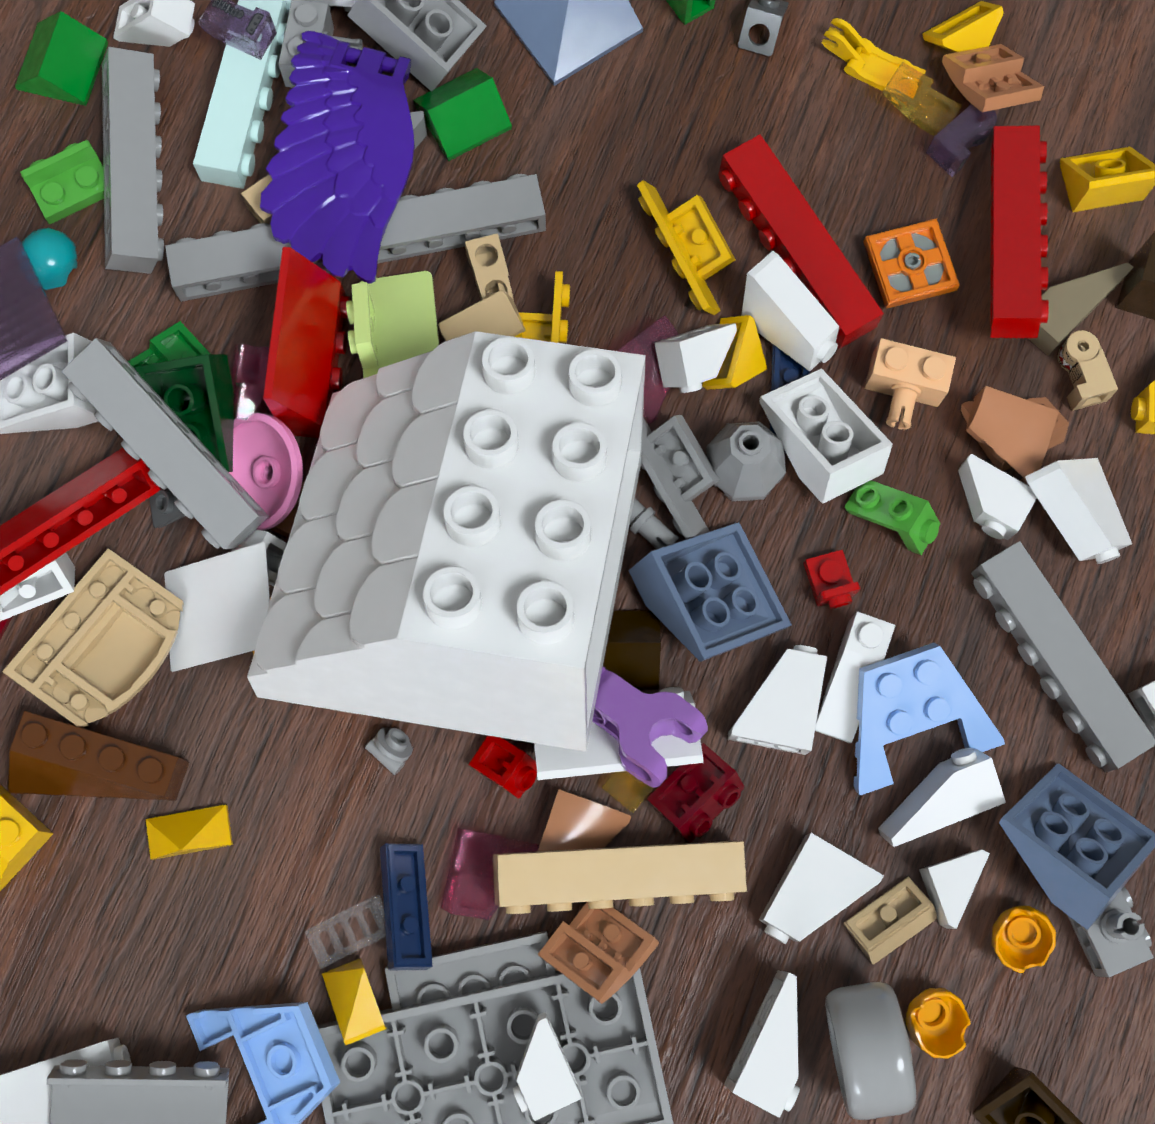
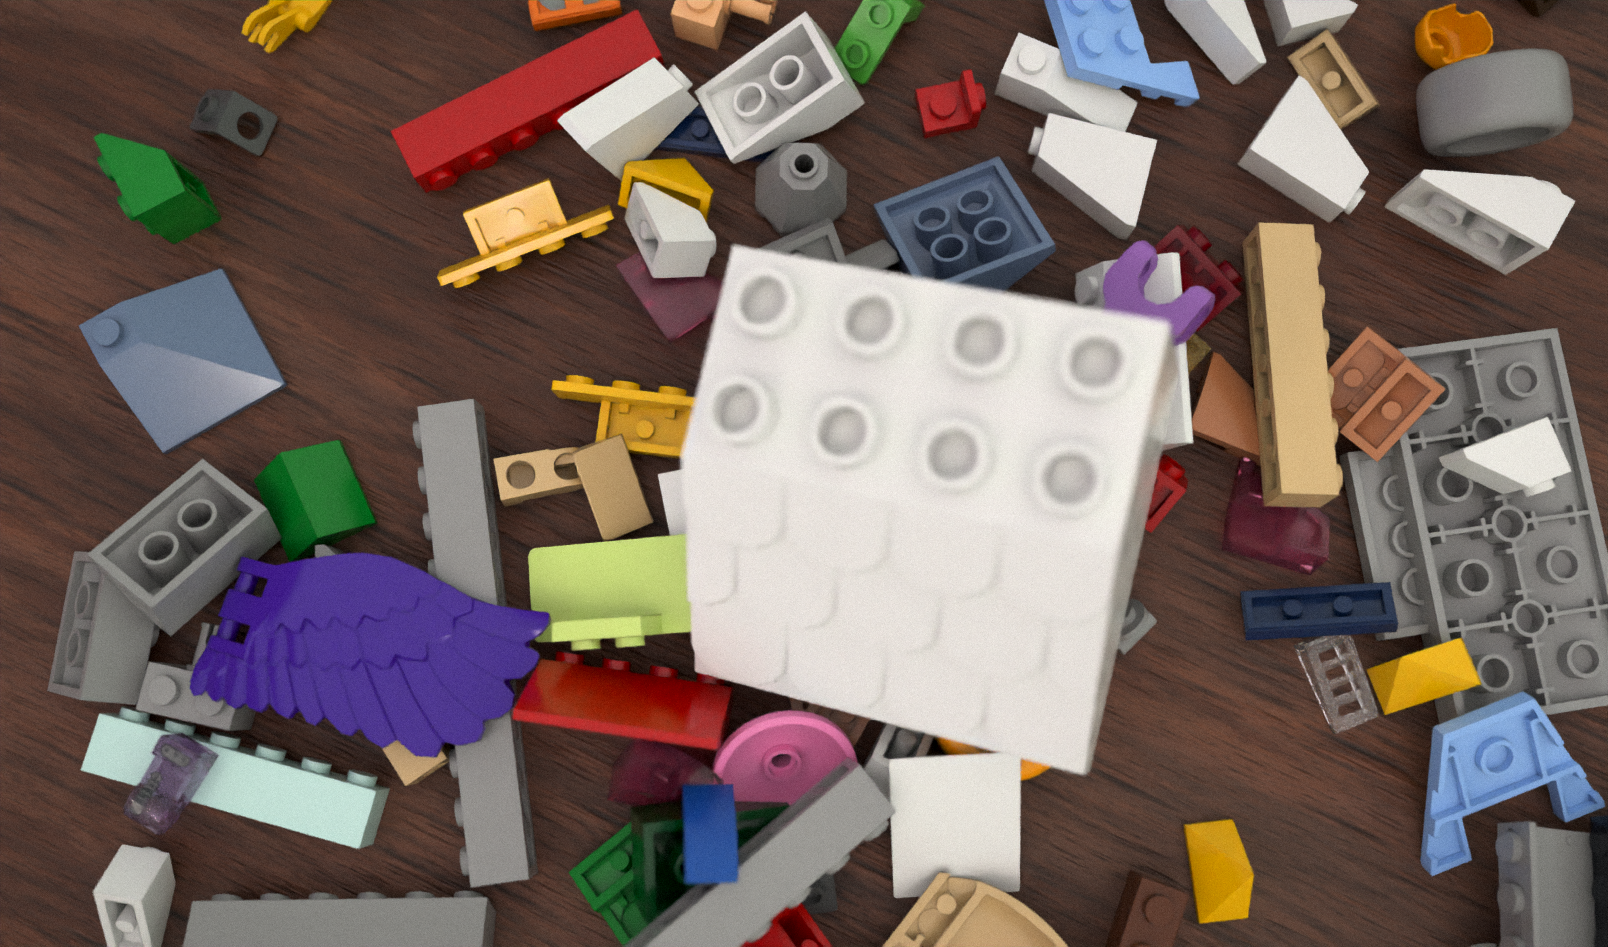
camera: 80 degrees left, 5 degrees up
(201, 402) = (709, 833): none -> blue slope

